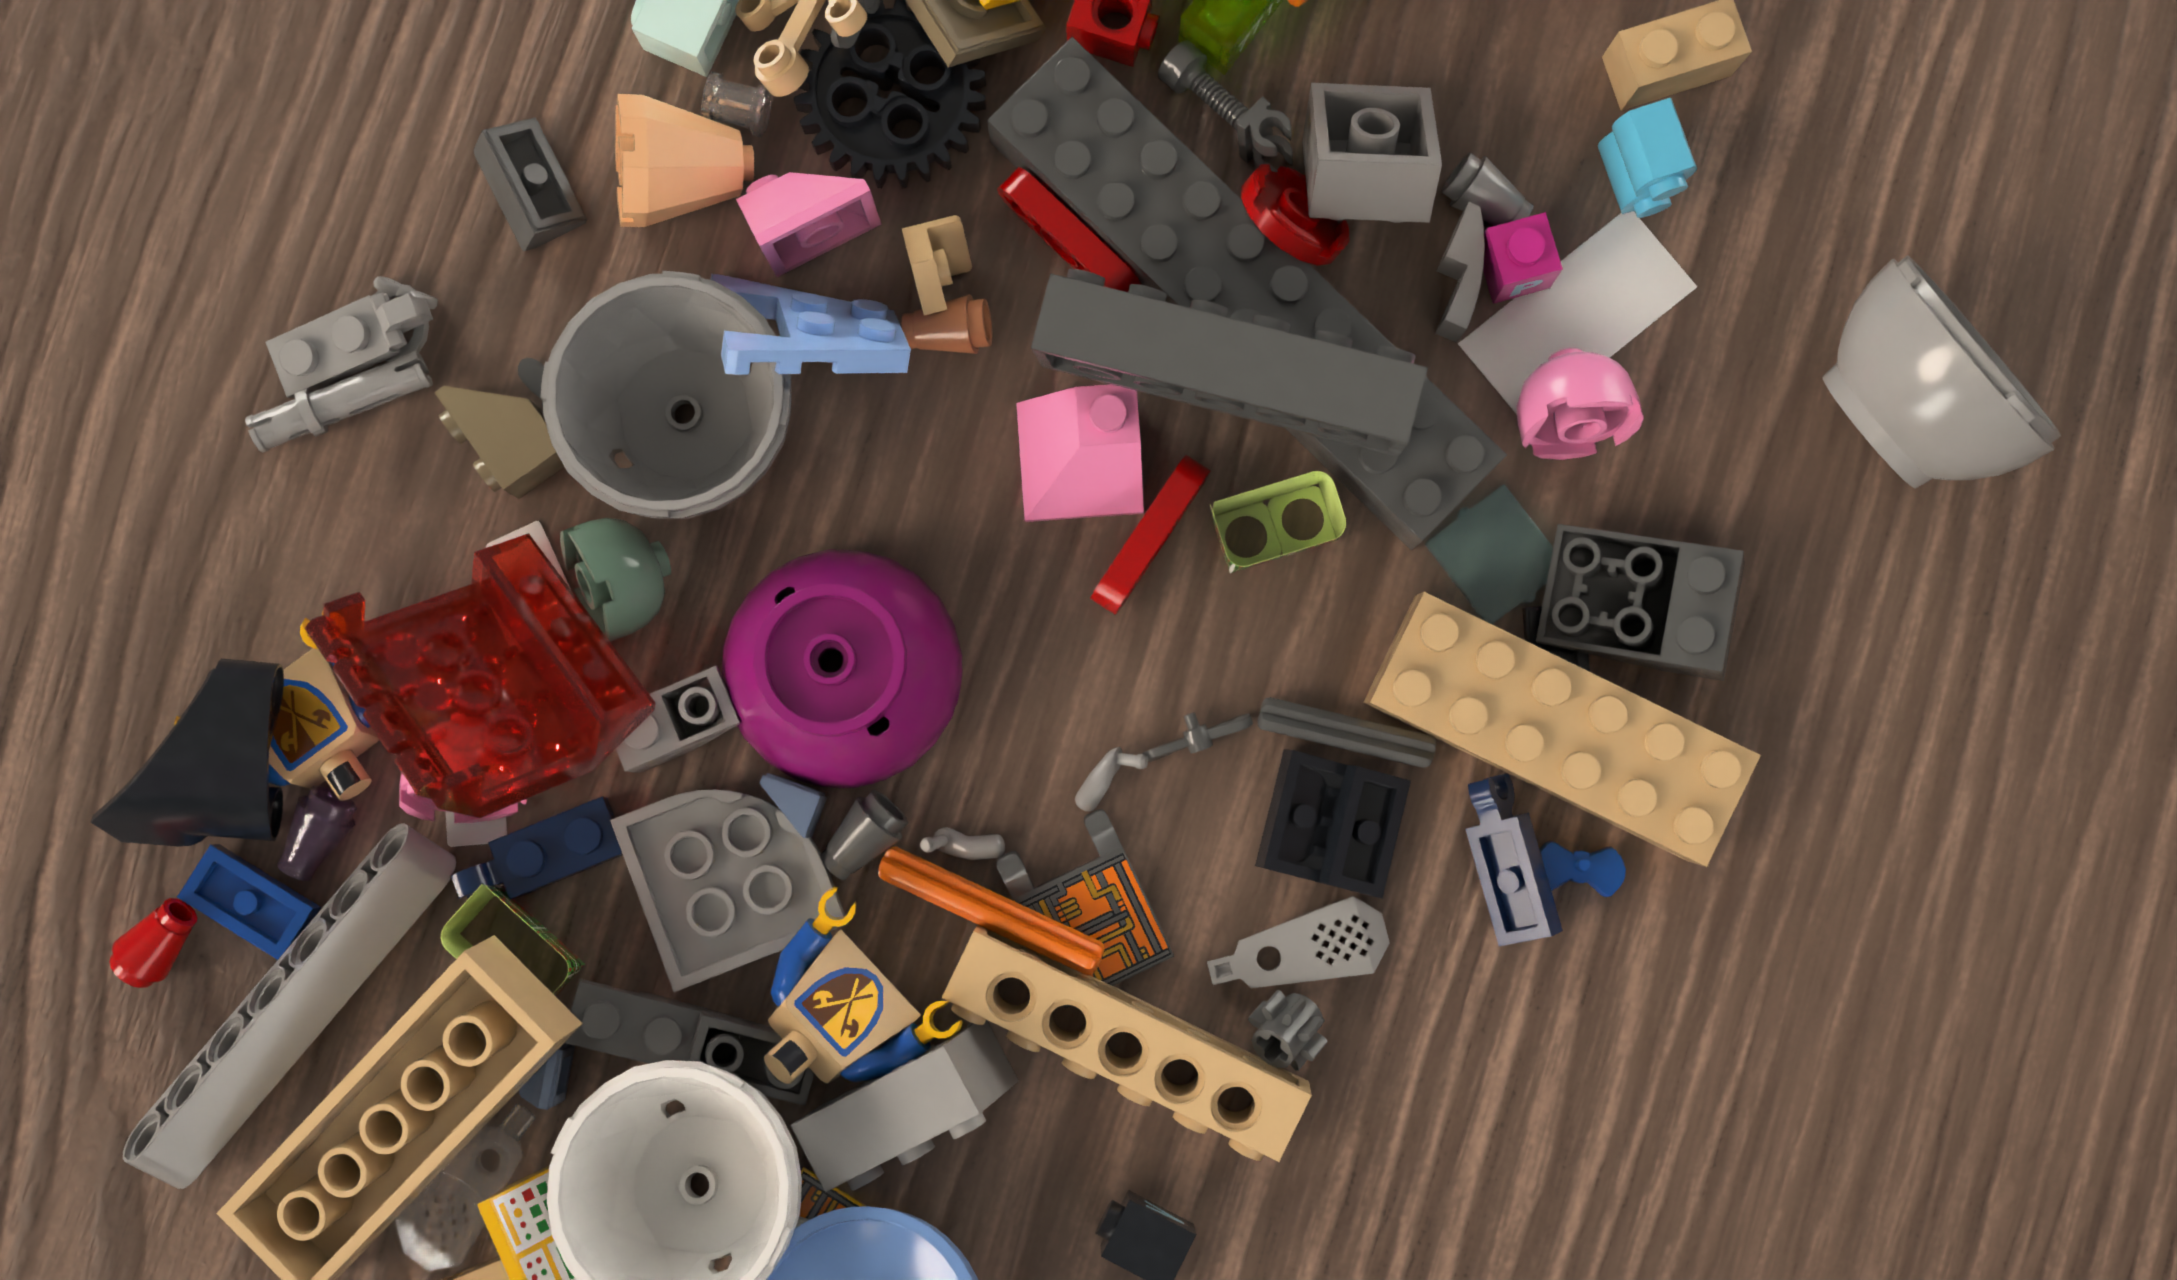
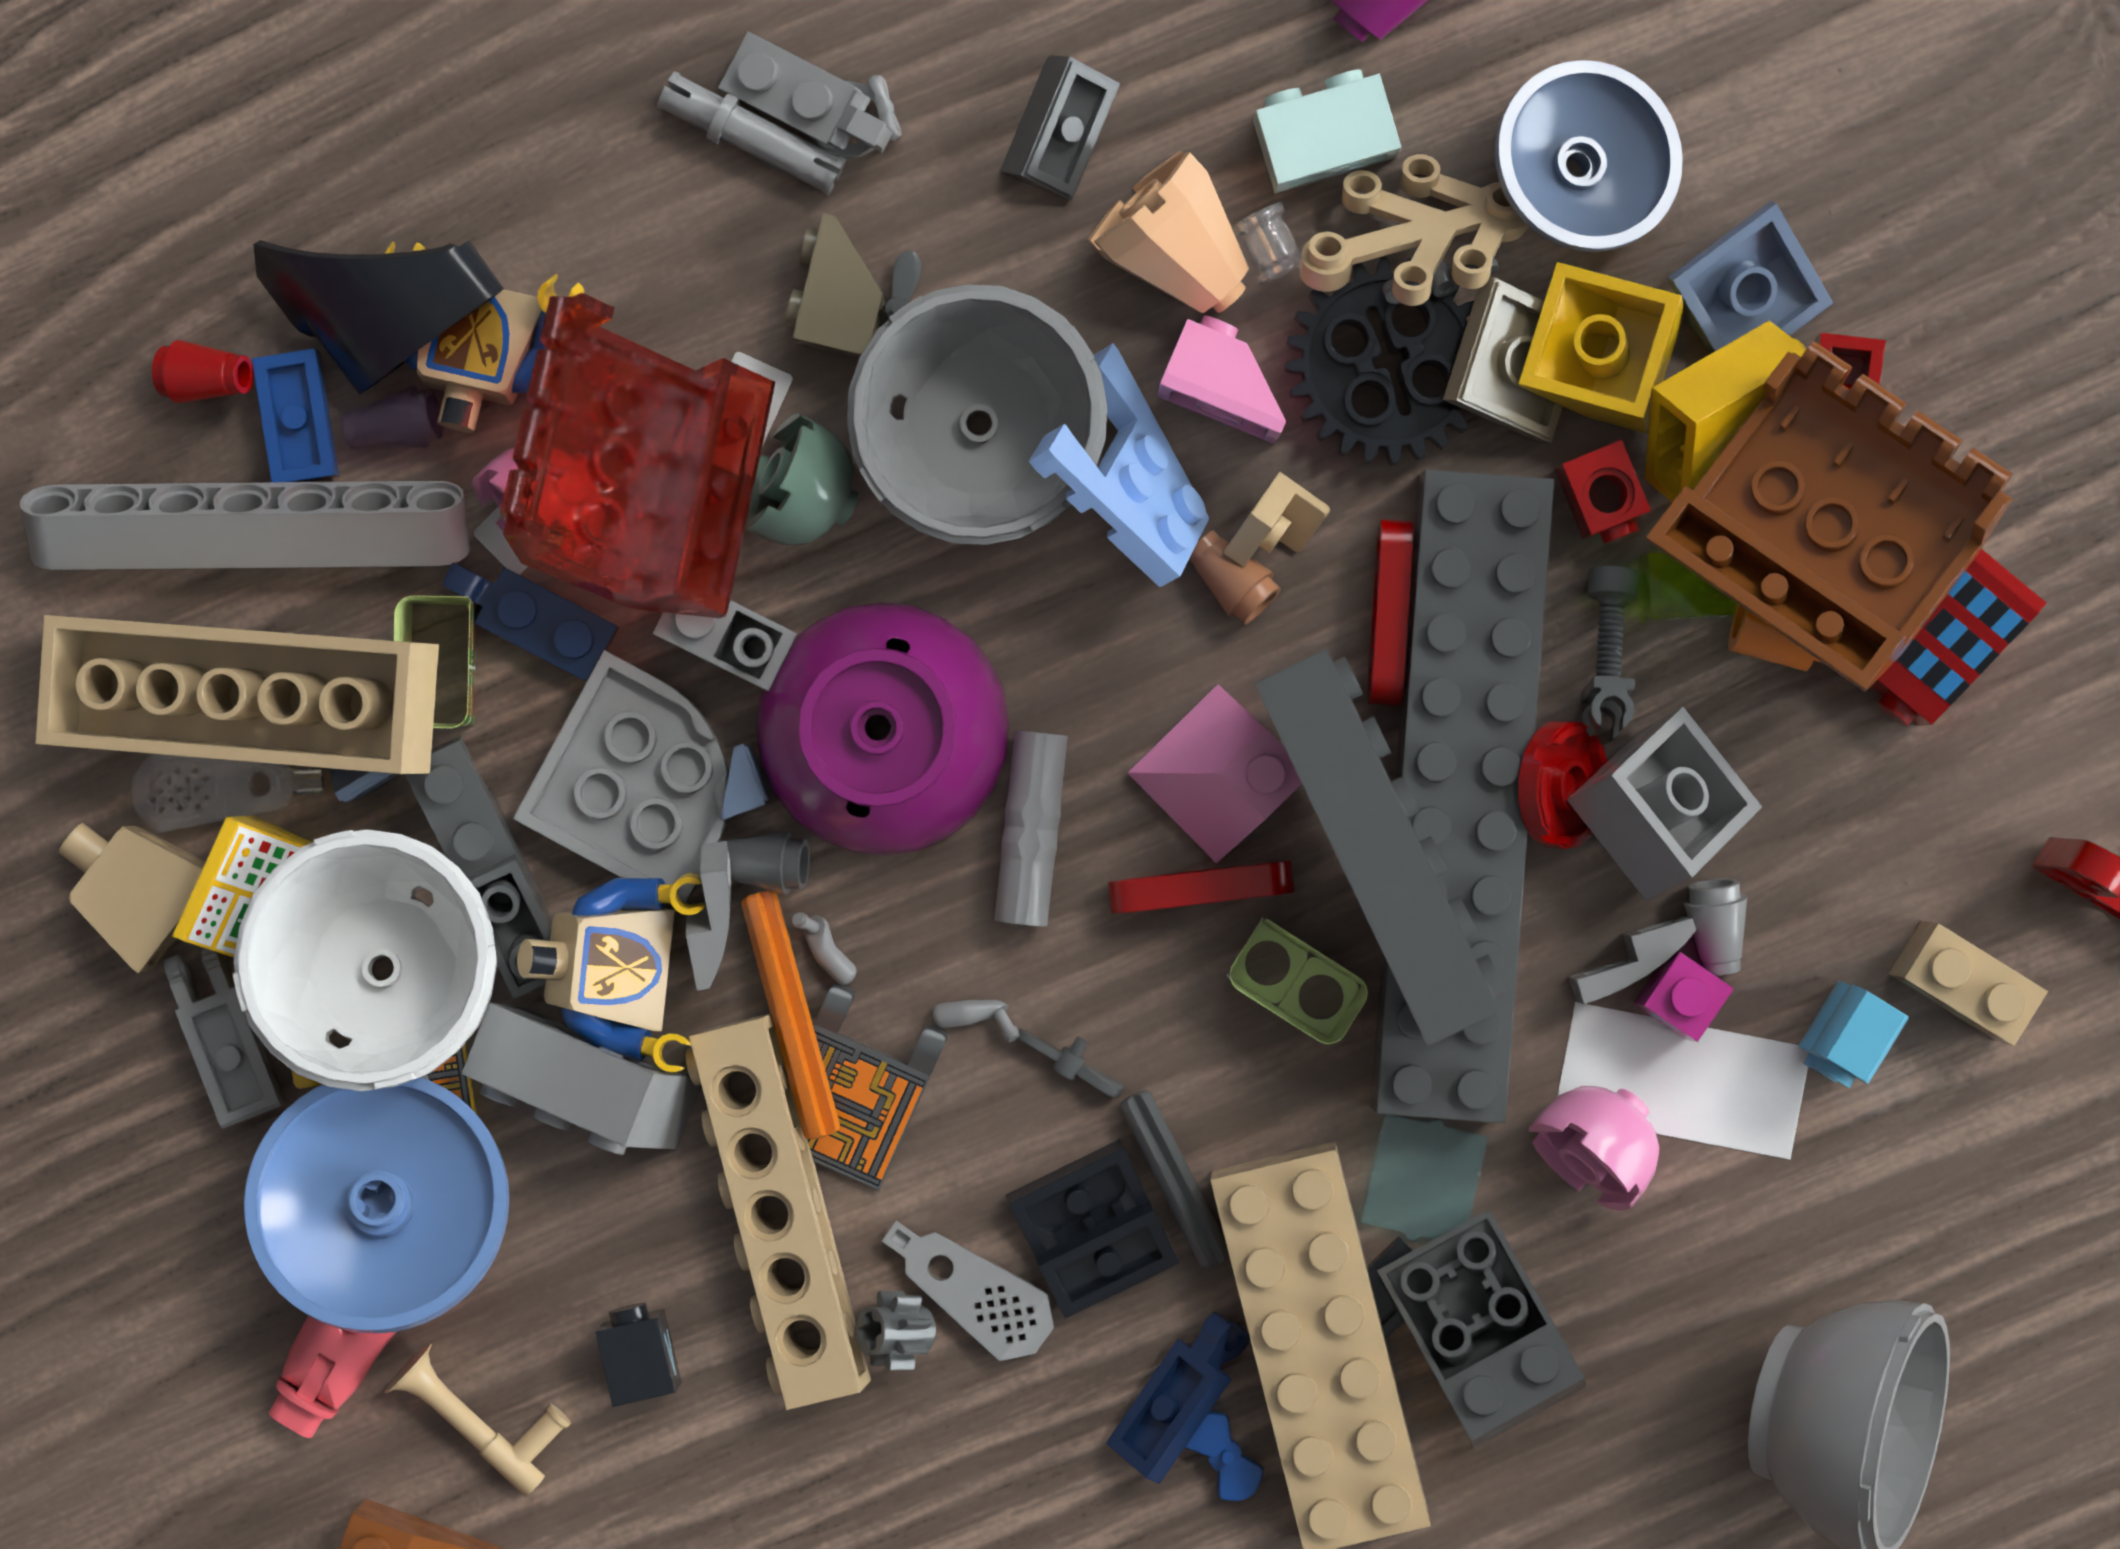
camera: 50 degrees right, 5 degrees up
(873, 913) = (709, 928): none -> light grey slope
(1004, 620) = (1031, 828): none -> light grey axle

